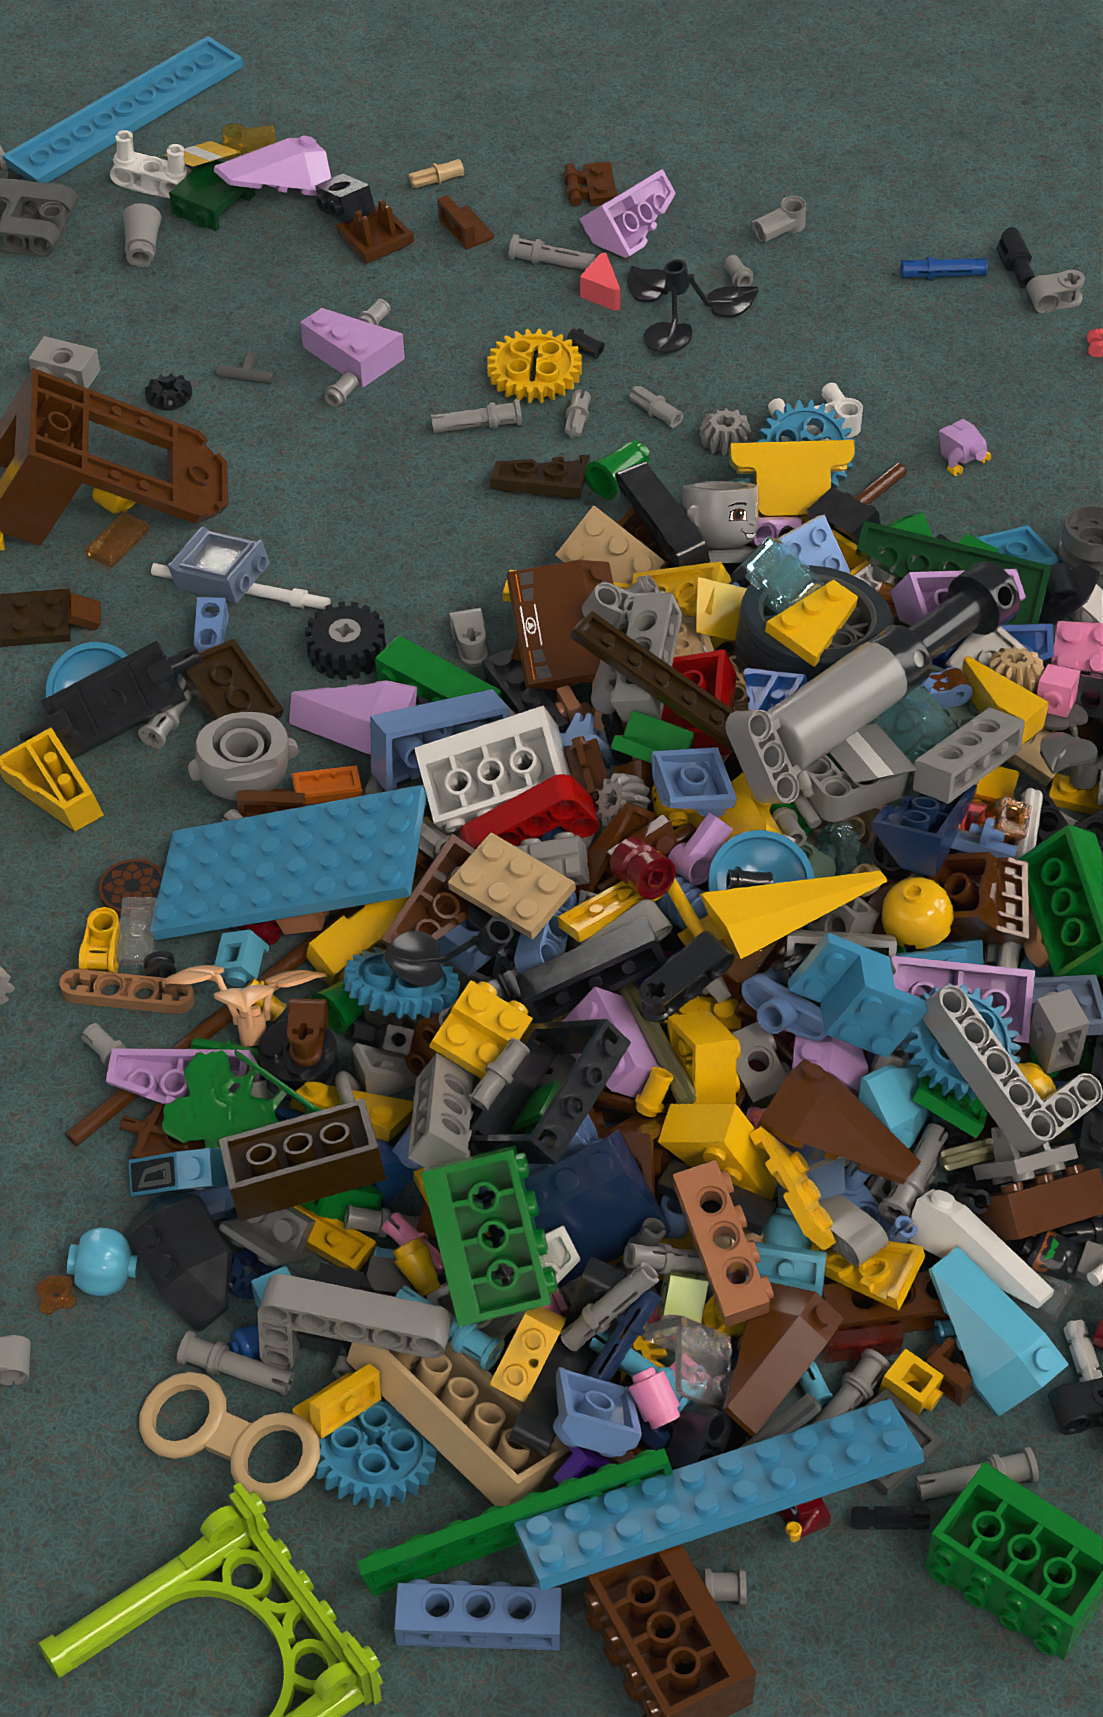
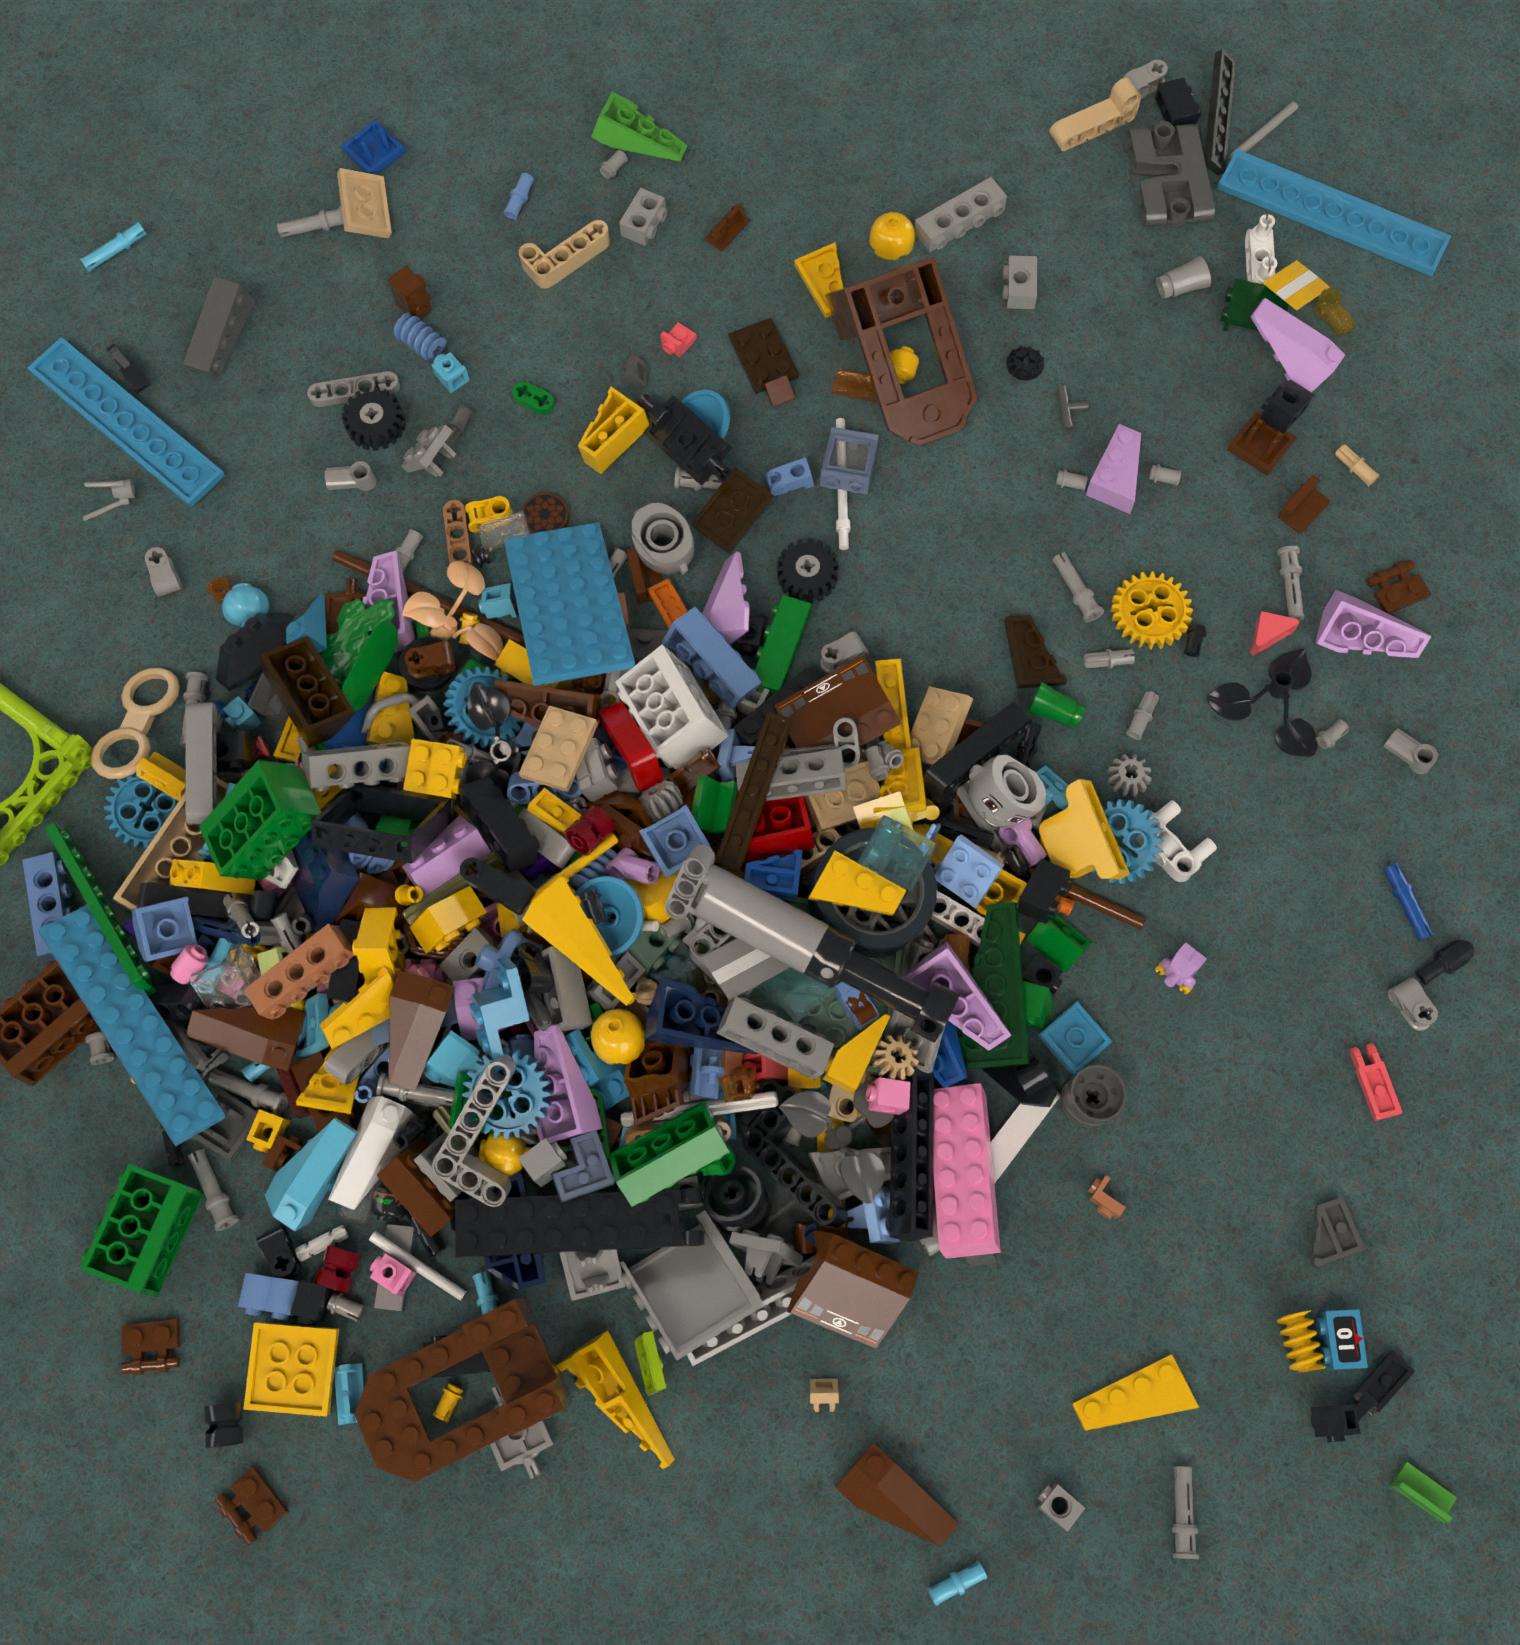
camera: 75 degrees right, 20 degrees up
(499, 1074) = (395, 789): light grey pin -> none

